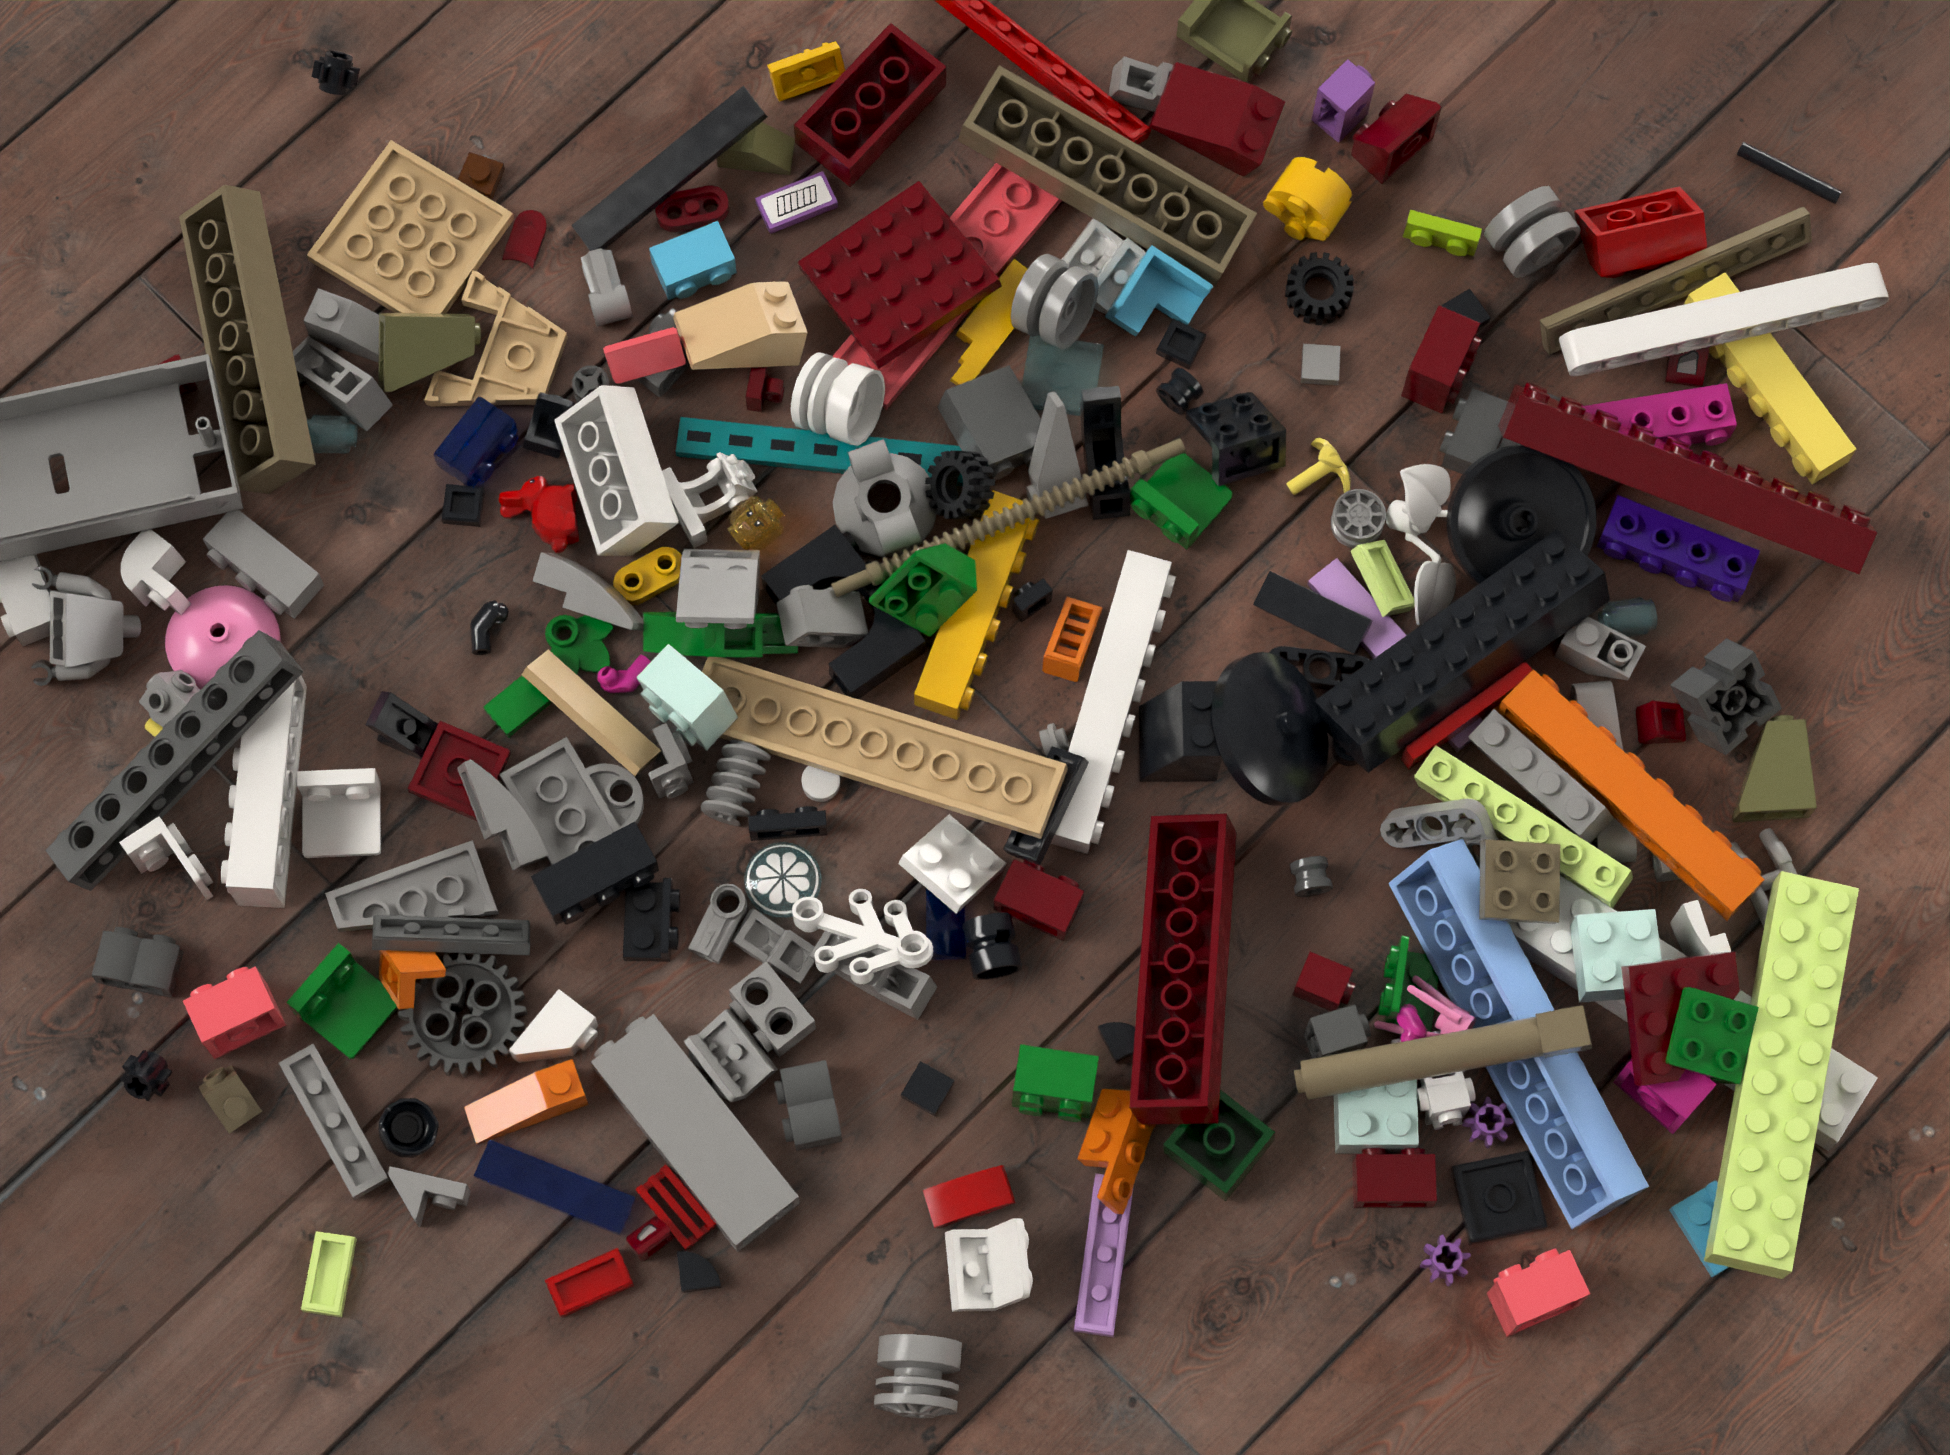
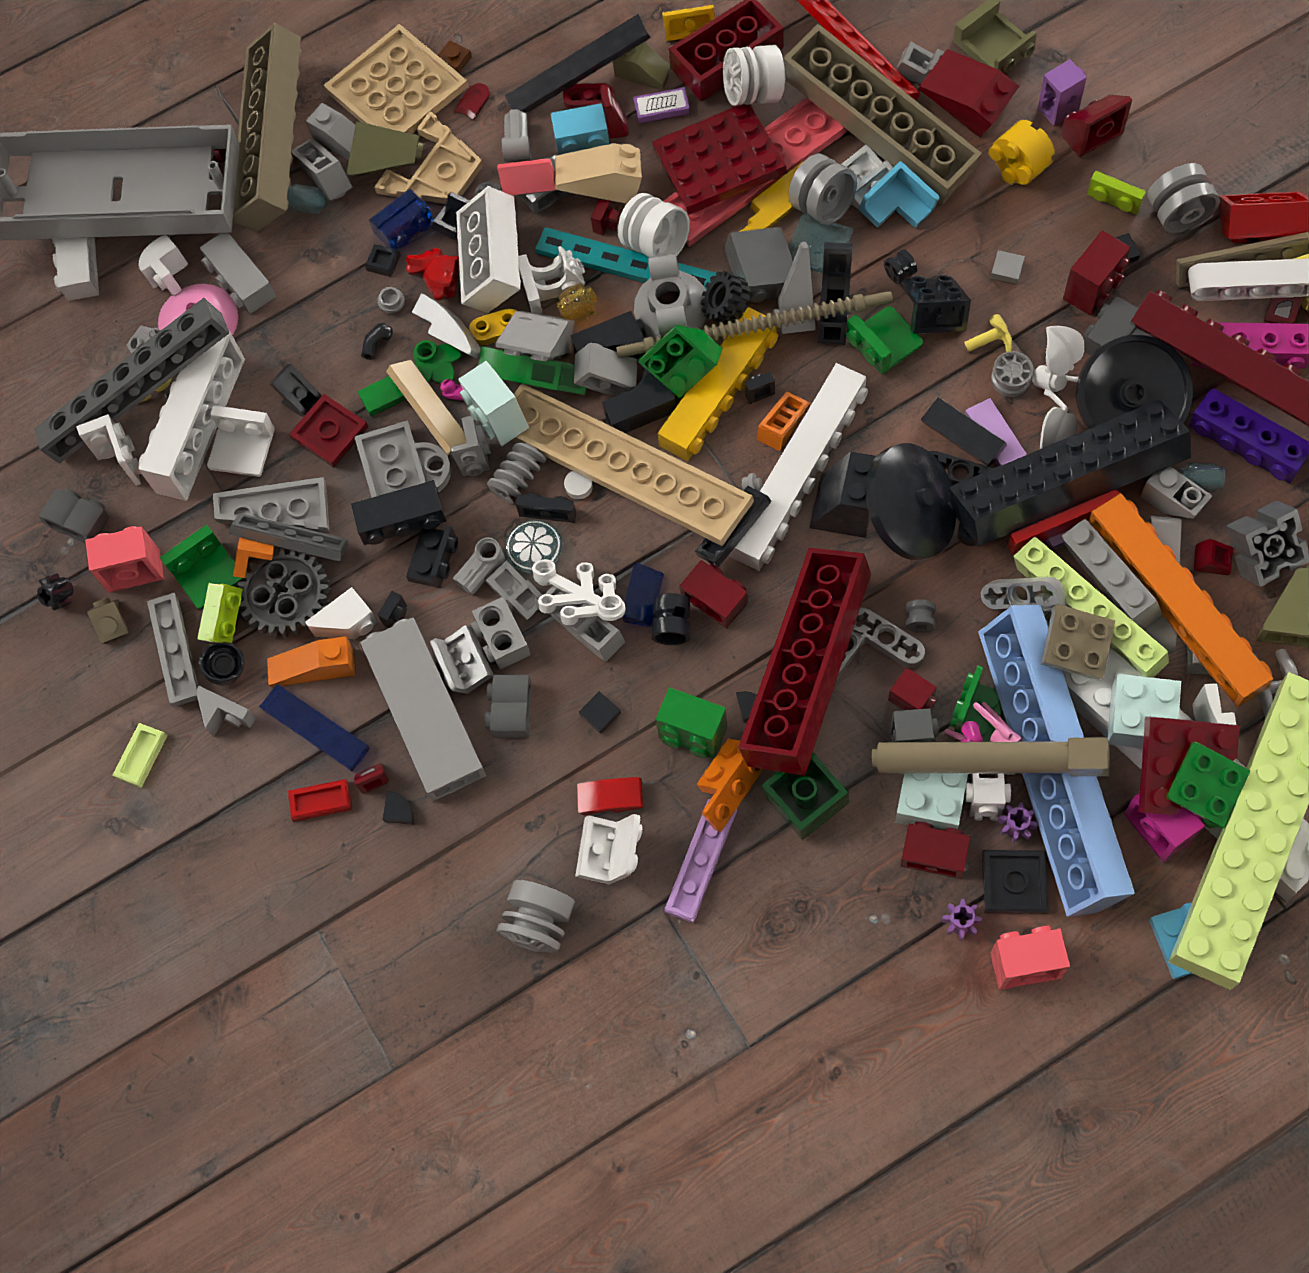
camera: 25 degrees right, 5 degrees down
(84, 627) = (104, 290): light grey torso -> none
(386, 1060) = (220, 613): none -> lime bracket
(492, 564) = (391, 300): none -> light grey plate
(501, 815) = (346, 463): light grey slope -> none
(620, 1008) = (392, 610): none -> black plate
(655, 1182) = (385, 738): red tile -> none
(737, 233) = (614, 115): none -> dark red slope
(923, 149) = (753, 75): none -> white wheel
(952, 863) = (656, 556): white plate -> none
(1181, 344) = (909, 237): black tile -> none
(1241, 917) = (862, 635): none -> light grey beam
(1323, 268) = (1022, 203): black tyre -> none
(1383, 578) = (1021, 417): yellowish green tile -> none

